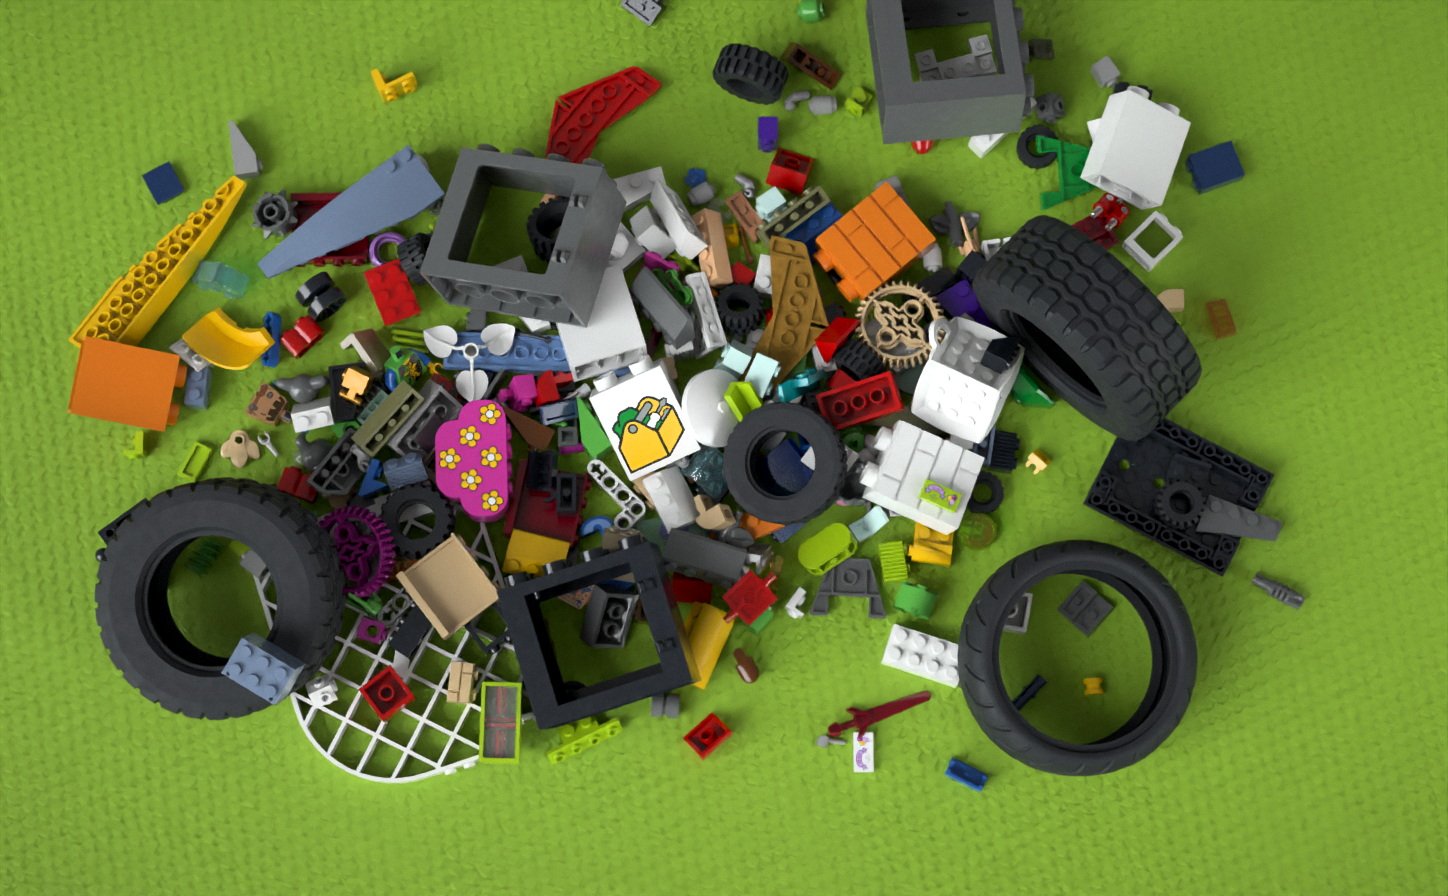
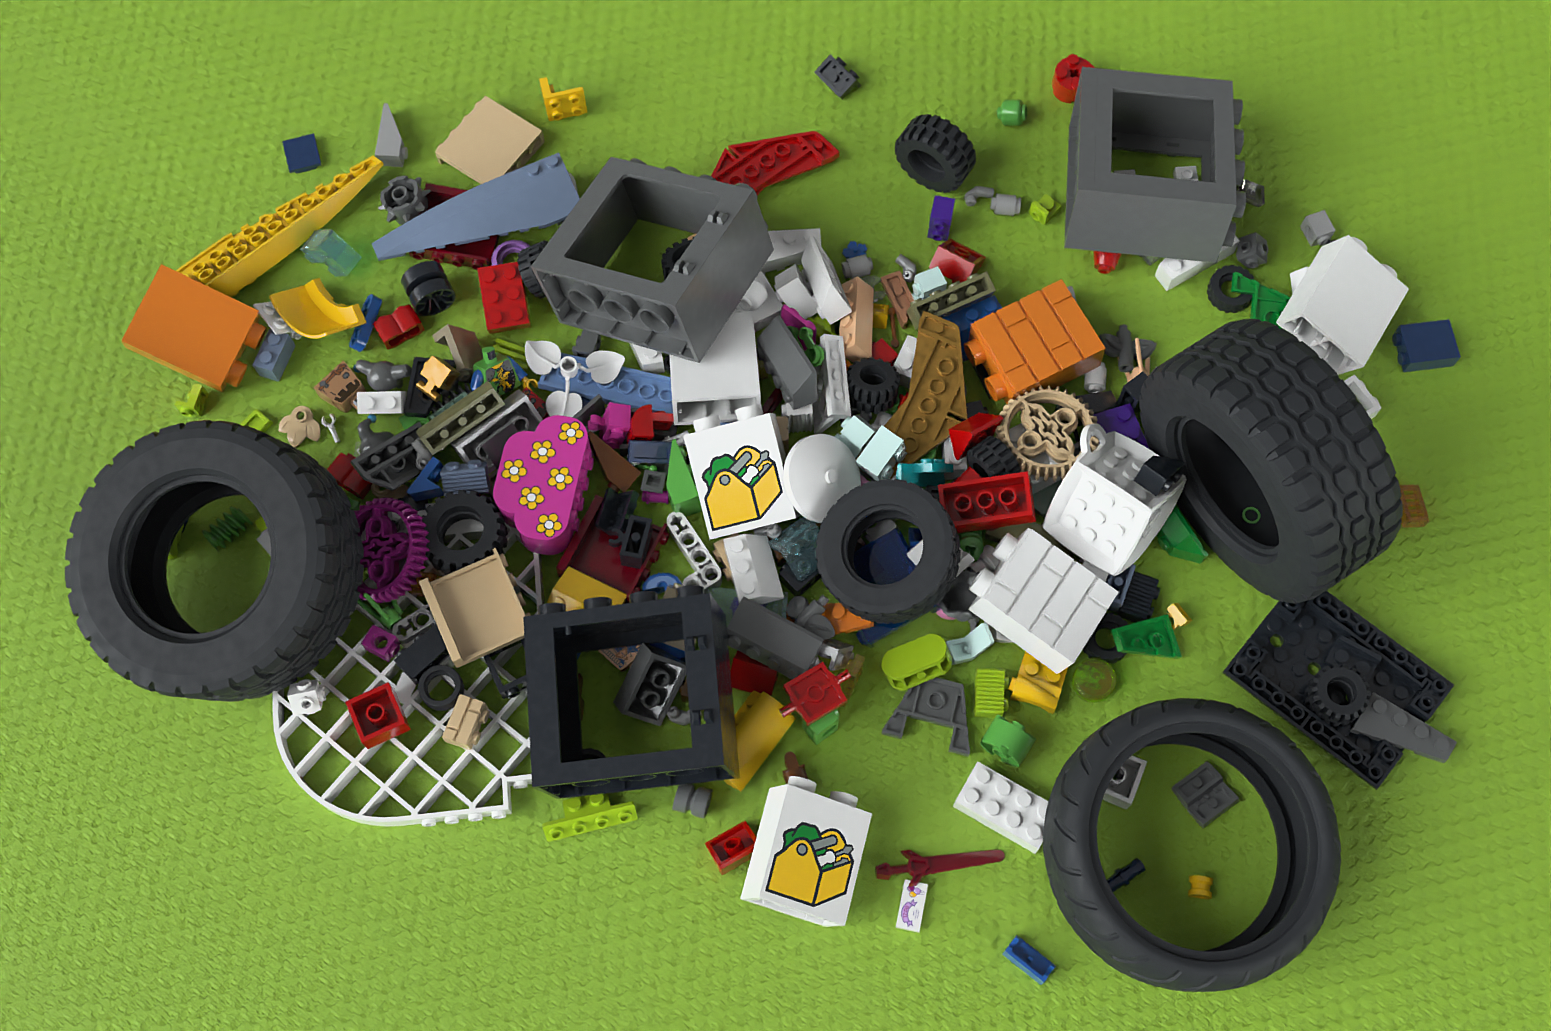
camera: 15 degrees right, 10 degrees down
(263, 668) = (226, 639): sand blue container -> none
(337, 140) = (490, 142): none -> tan panel
(430, 643) = (429, 675): none -> black tyre
(501, 723) = (496, 777): clear brick -> none
(518, 332) = (627, 365): black hinge -> none
(639, 636) = (679, 716): none -> light grey arm
(713, 517) = (794, 596): tan brick -> none
(742, 398) = (854, 470): lime panel -> none
(770, 730) = (807, 853): none -> white brick
(797, 600) = (870, 712): white bracket -> none
(810, 65) = (1001, 164): reddish brown slope -> none
(822, 741) = (867, 881): light grey hand -> none
(940, 496) = (1059, 621): lime tile -> none
(1016, 486) = (1148, 638): none -> green wing
(1279, 591) = (1441, 822): dark grey hinge -> none

